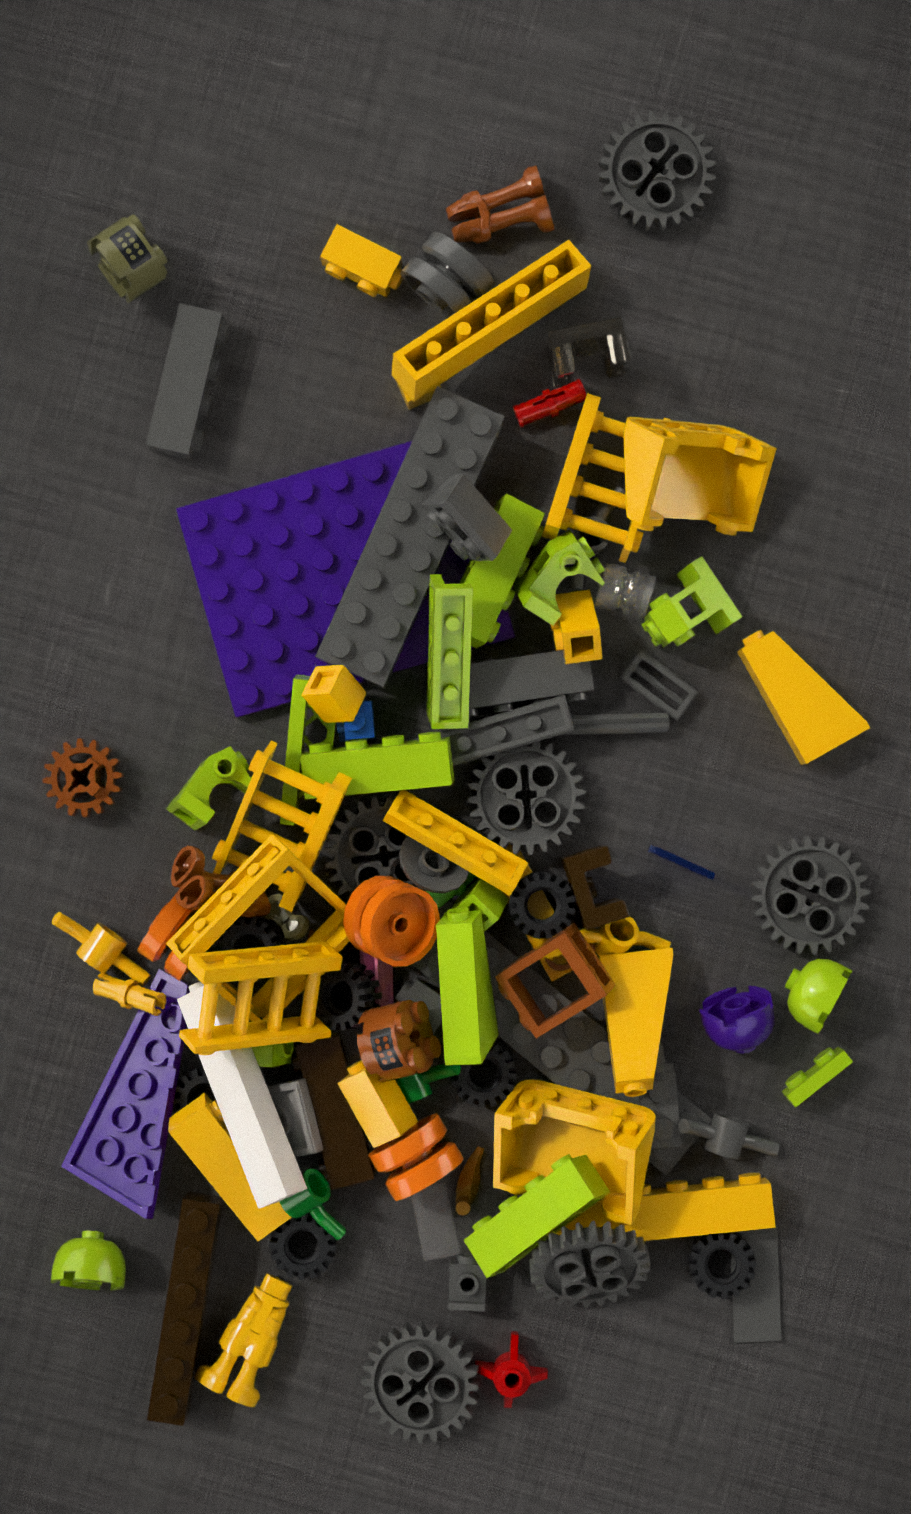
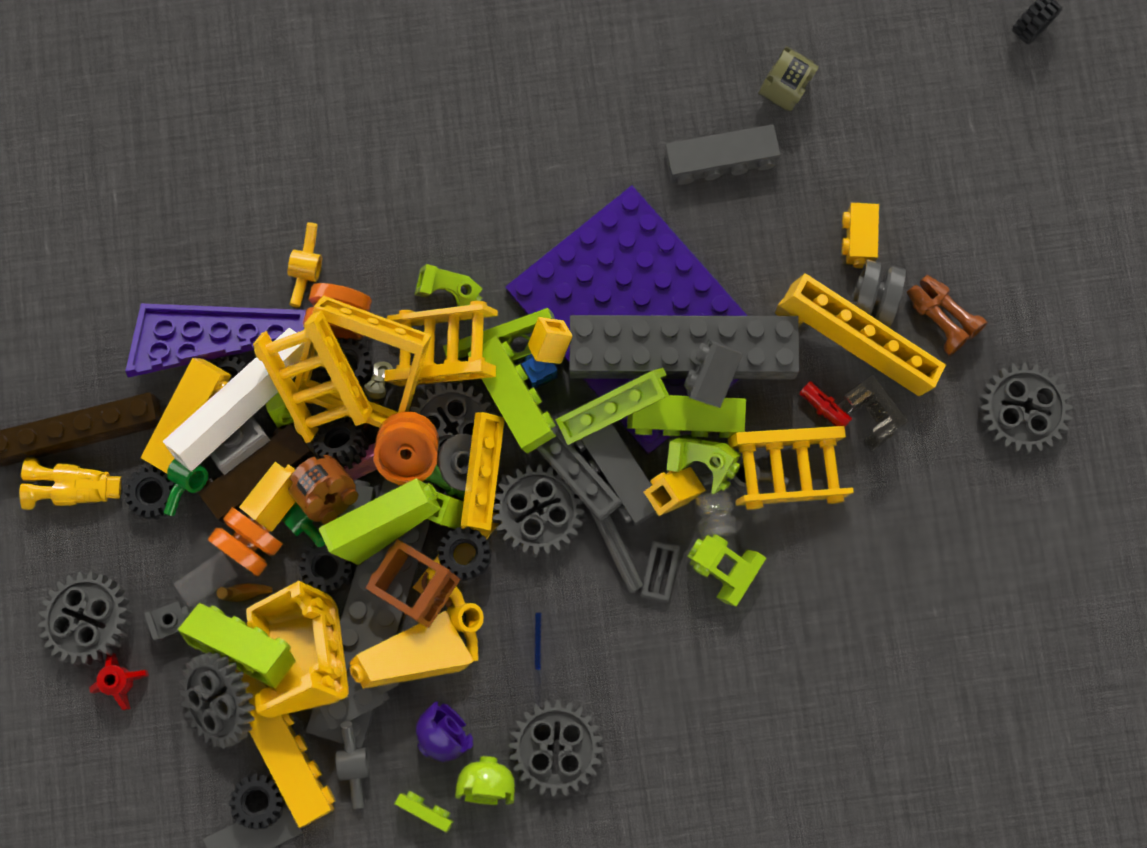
camera: 70 degrees right, 10 degrees down
(71, 767) = (420, 192): dark orange gear -> none
(89, 1263) = (80, 350): lime cylinder -> none
(129, 994) = (280, 297): yellow pin -> none
(198, 885) = (376, 302): dark orange piece -> none
(584, 890) = (488, 577): dark brown panel -> none
(693, 474) = (821, 523): yellow windscreen -> none
(800, 700) = (694, 680): yellow slope -> none

